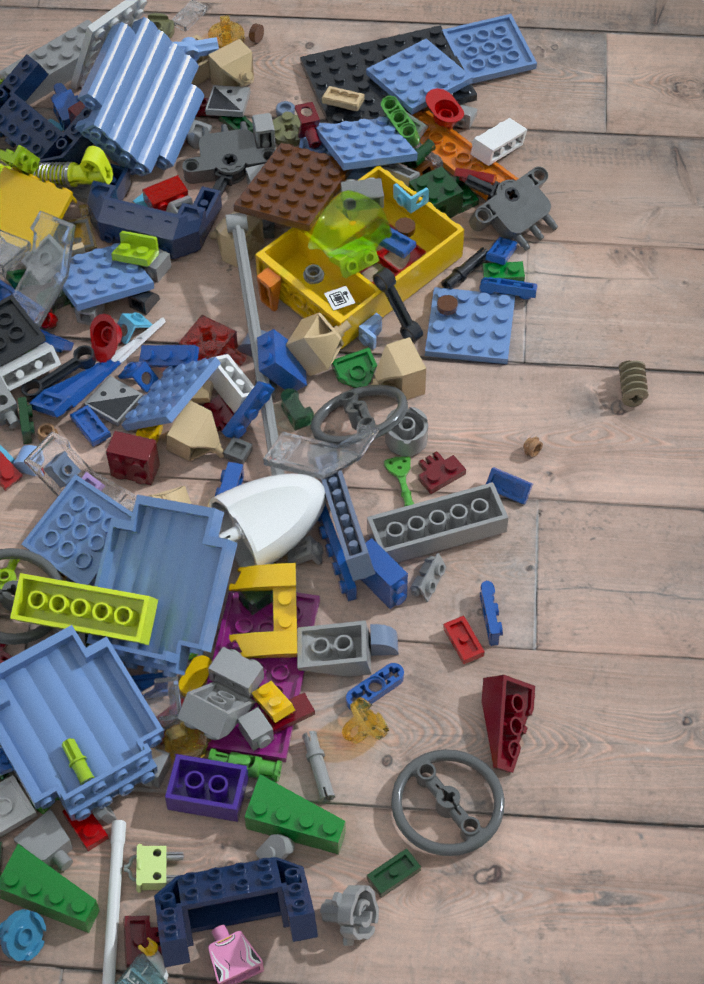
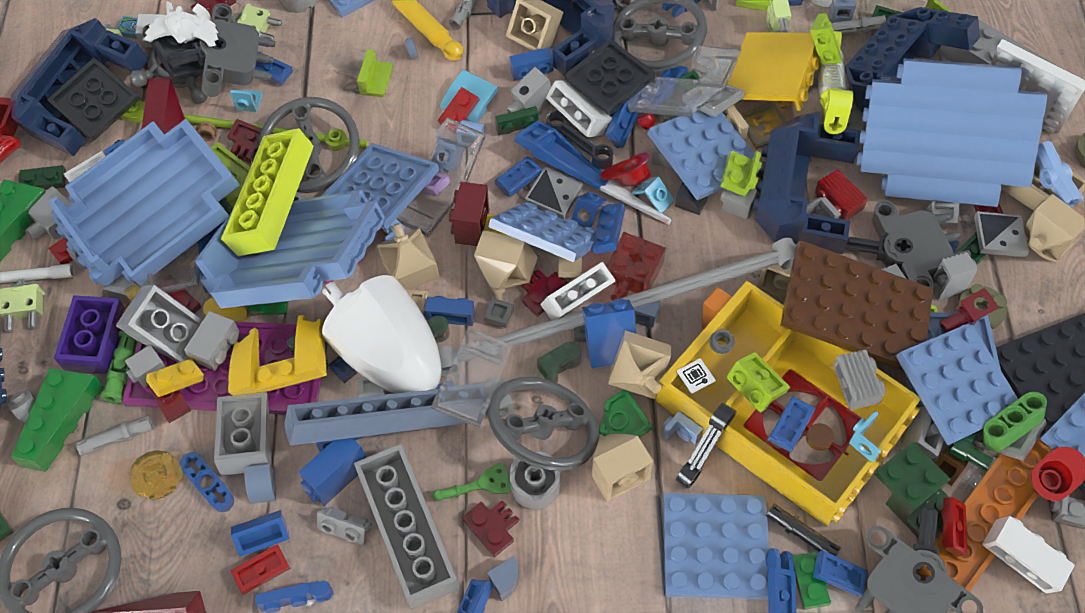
camera: 85 degrees right, 5 degrees up
(44, 429) = (503, 138): medium nougat plate -> none
(77, 761) = (106, 214): lime axle -> none
(248, 410) = (537, 308): blue plate -> none
(284, 107) = (1015, 300): sand blue tile -> none
(337, 236) = (786, 365): clear neon green piece -> none
(343, 98) = (1037, 353): tan plate -> none
(432, 637) = (260, 533): none -> blue piece
(447, 305) = (732, 510): reddish brown tile -> none
(486, 458) = (505, 578): none -> sand blue brick

